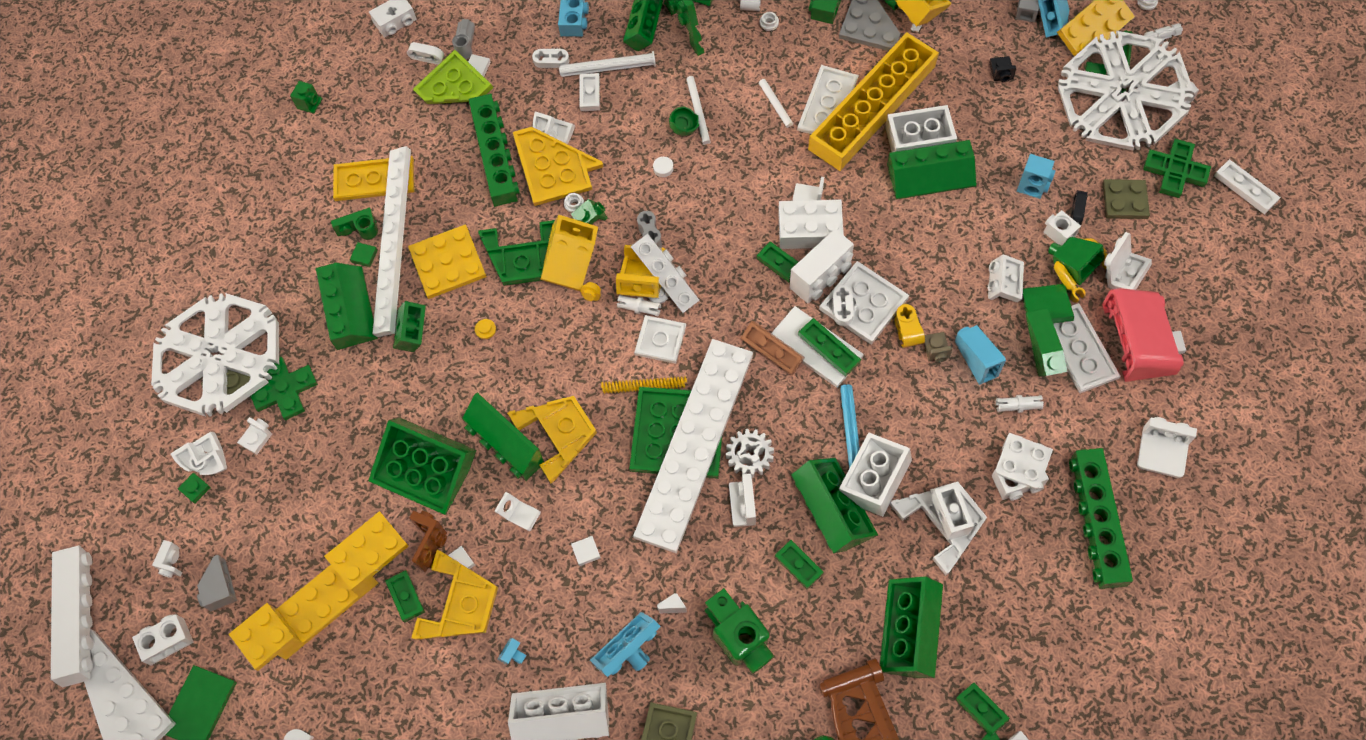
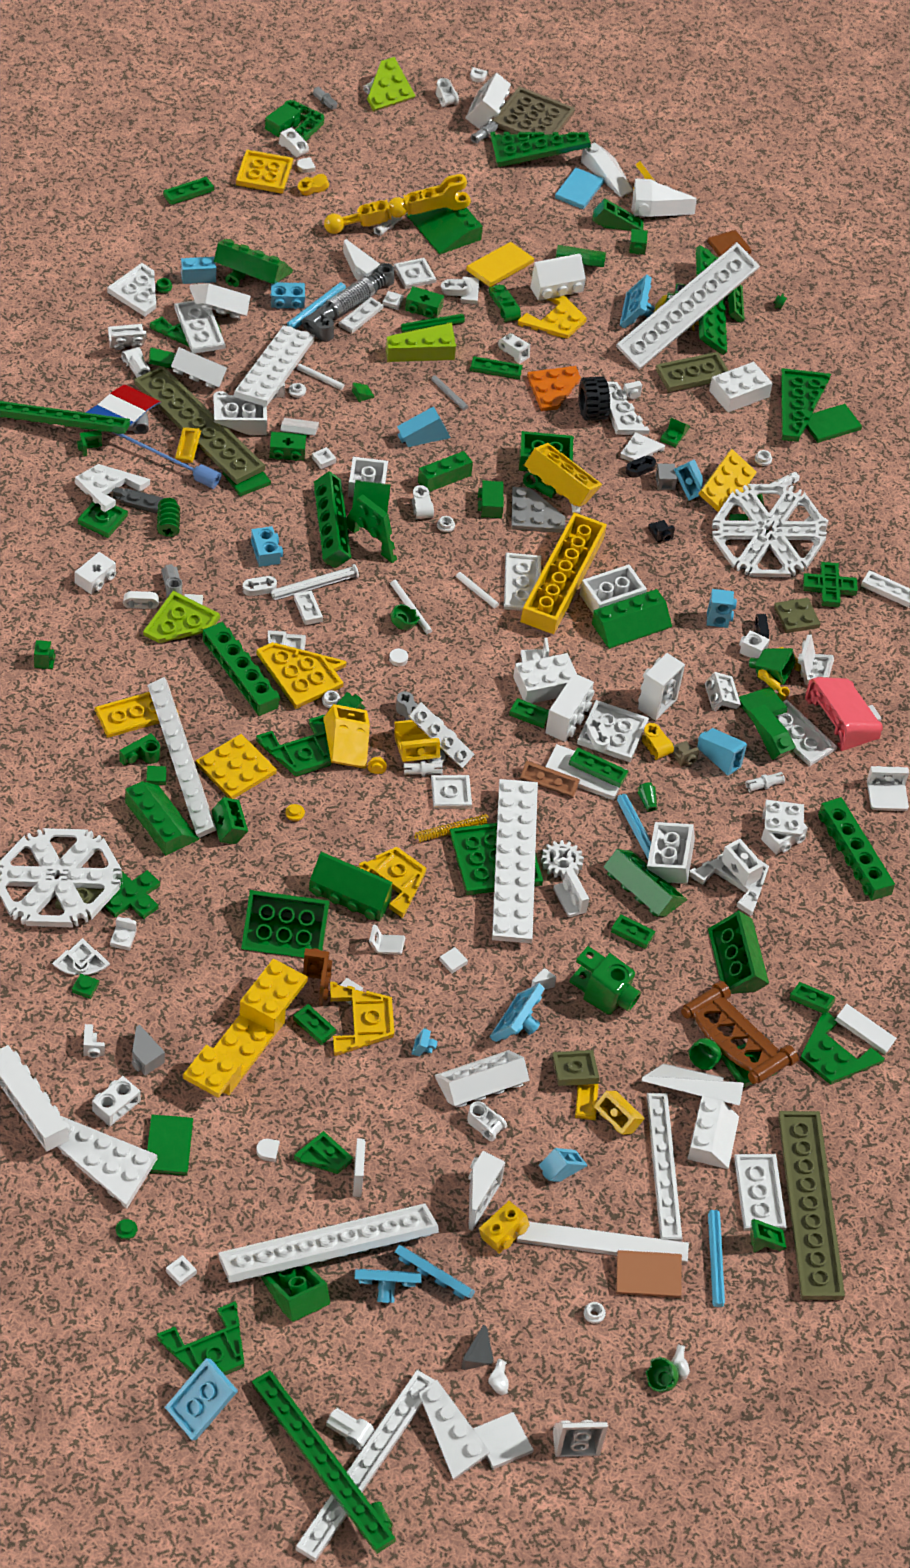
camera: 30 degrees left, 15 degrees down
(876, 393) = (647, 794): none -> green cone
(931, 262) = (660, 686): none -> white brick

